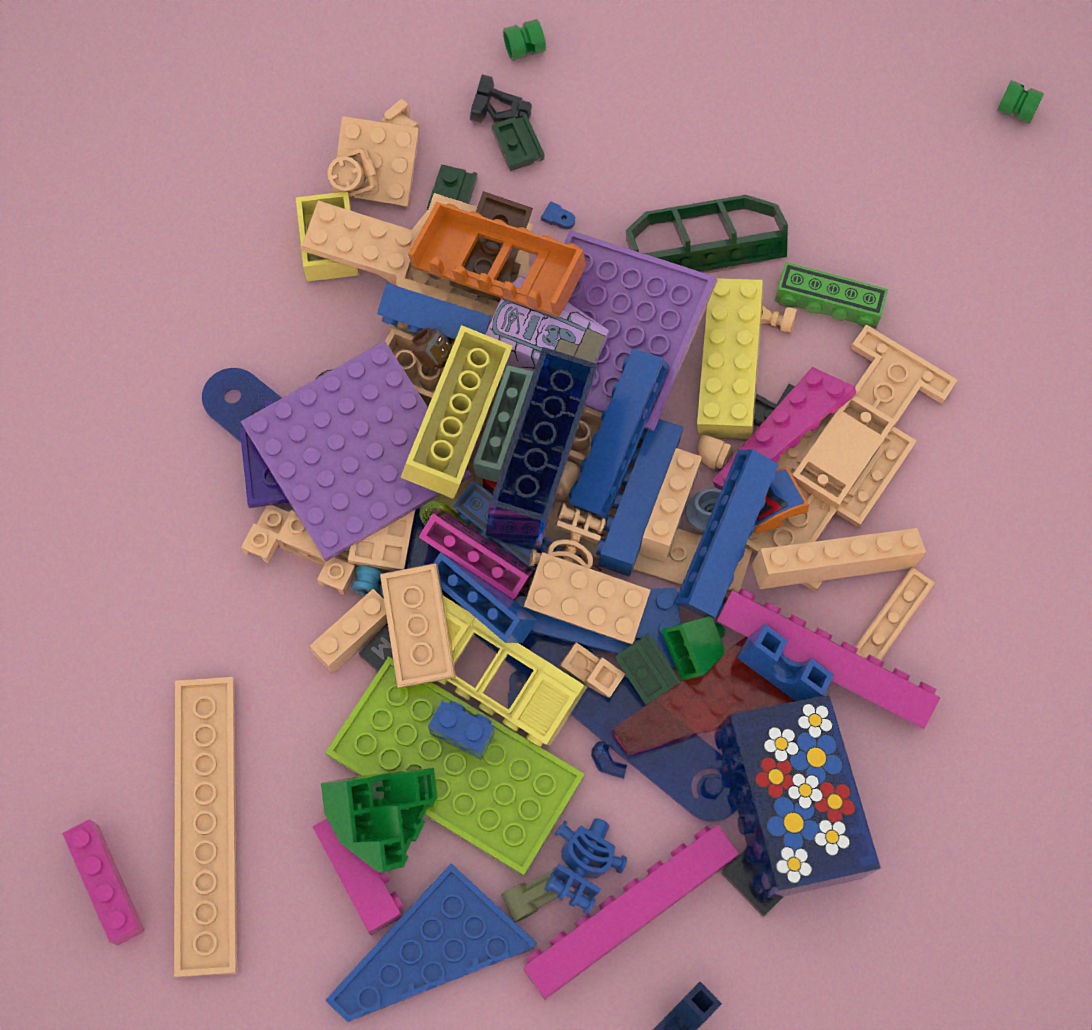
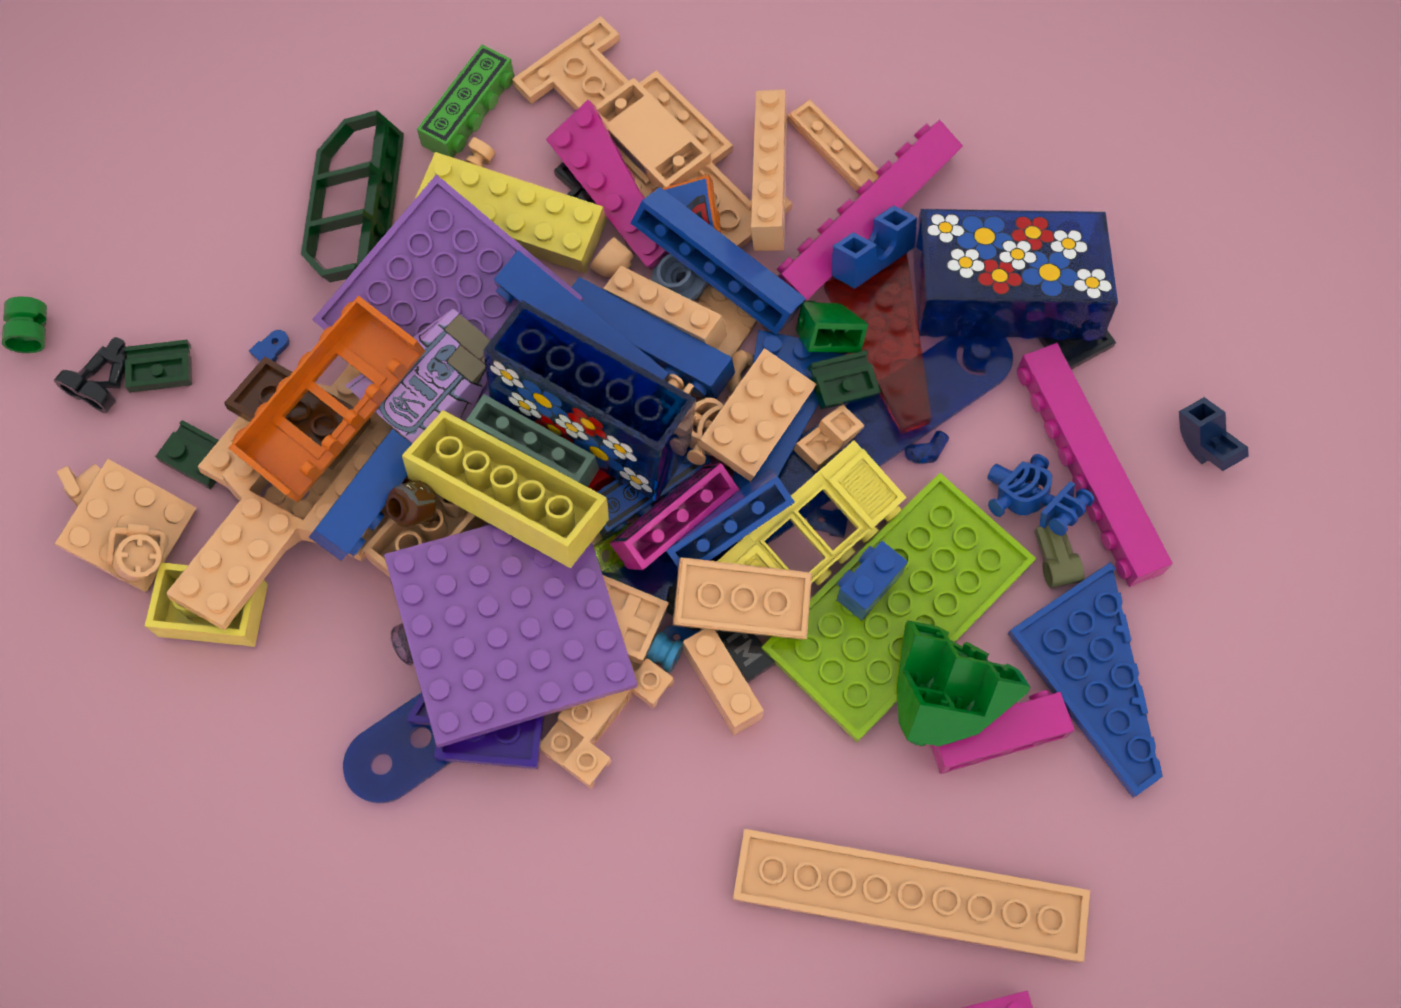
camera: 75 degrees left, 0 degrees up
(642, 579) = (741, 361): none -> light nougat arm

